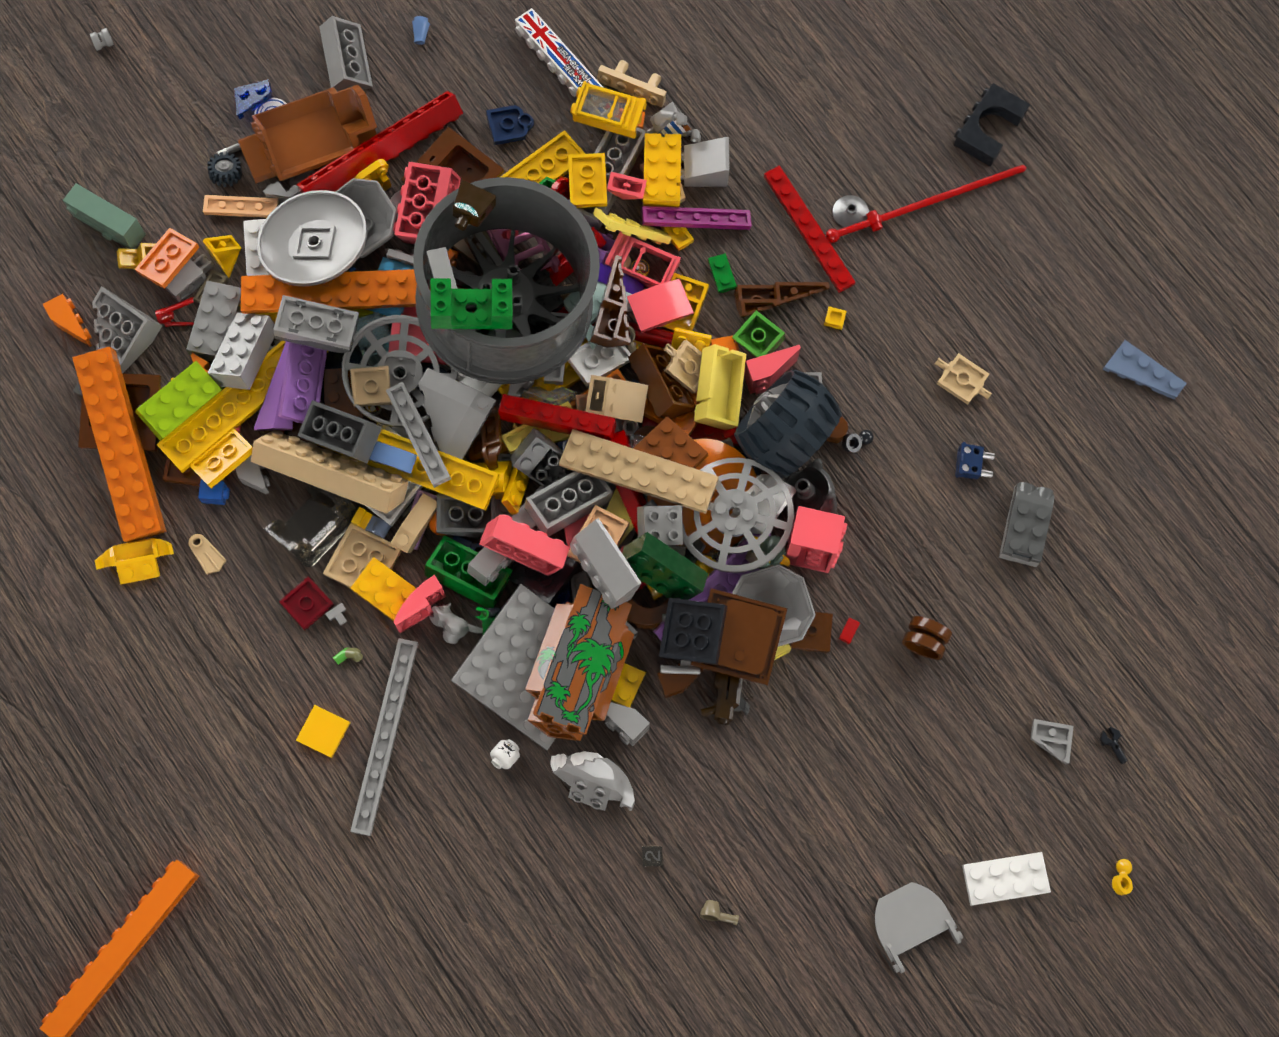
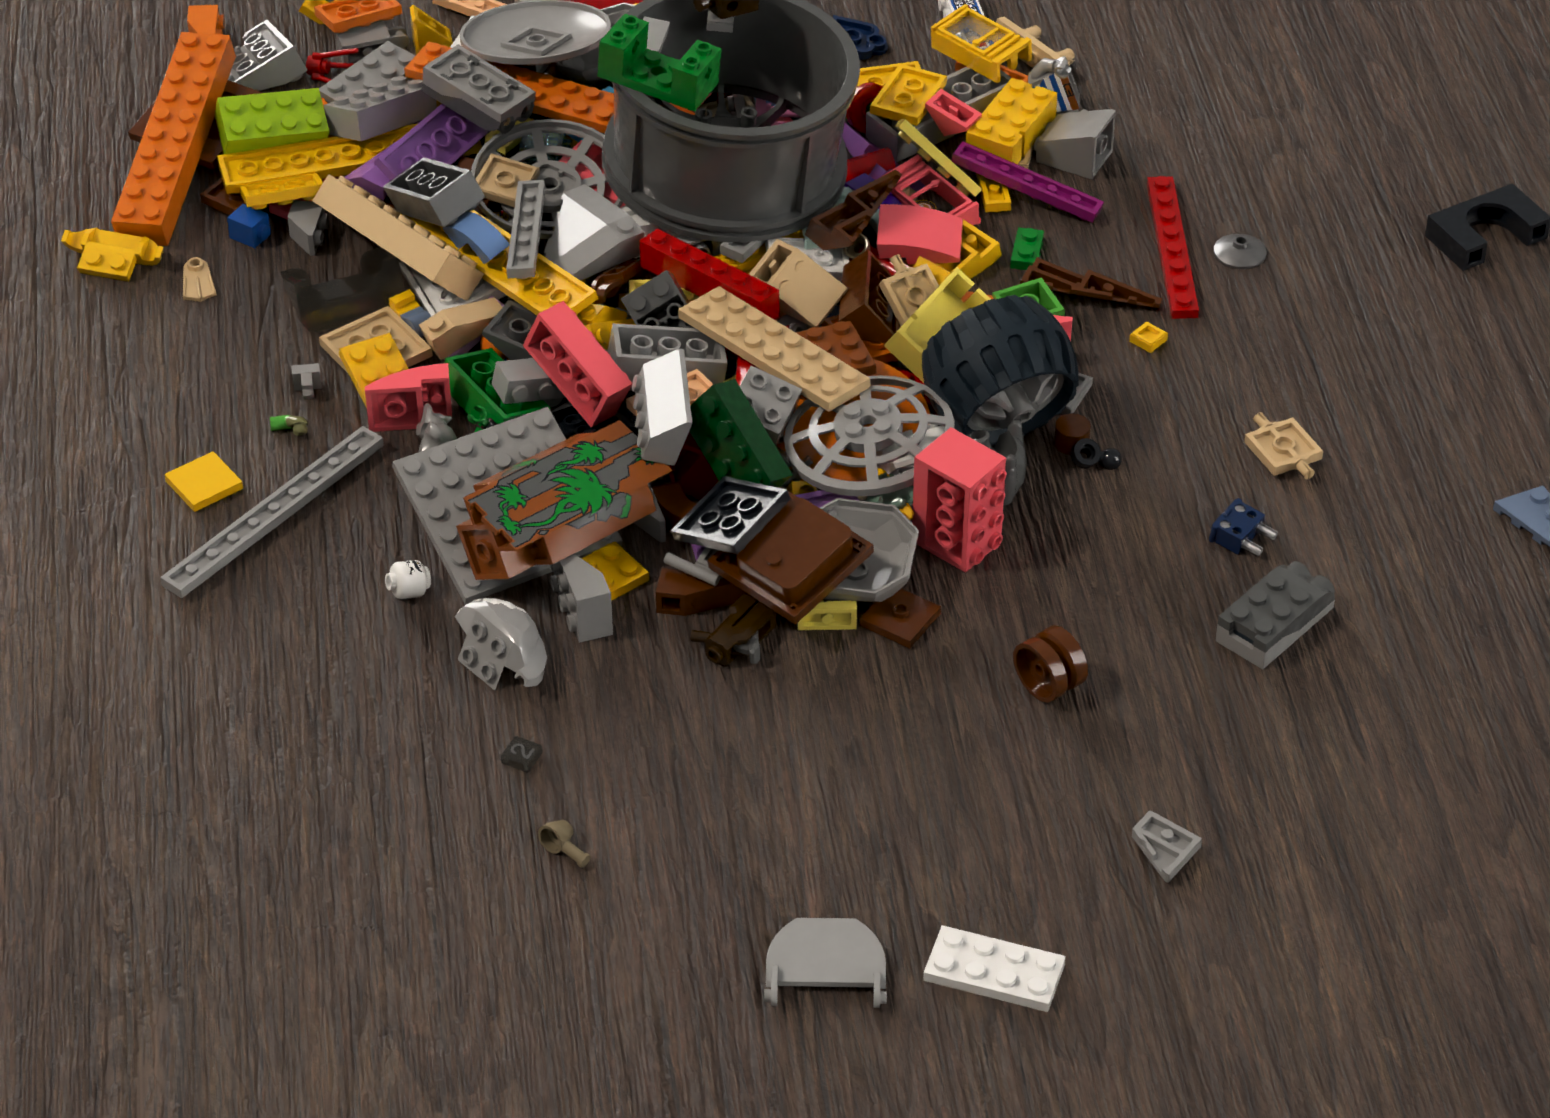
camera: 30 degrees right, 30 degrees down
(306, 603) = (273, 358): dark red plate -> none
(849, 630) = (952, 635): red piece -> none
(875, 220) = (1266, 265): red bar -> none
(1114, 743) = (1252, 886): black bar -> none
(1122, 883) = (1163, 1034): yellow plate -> none

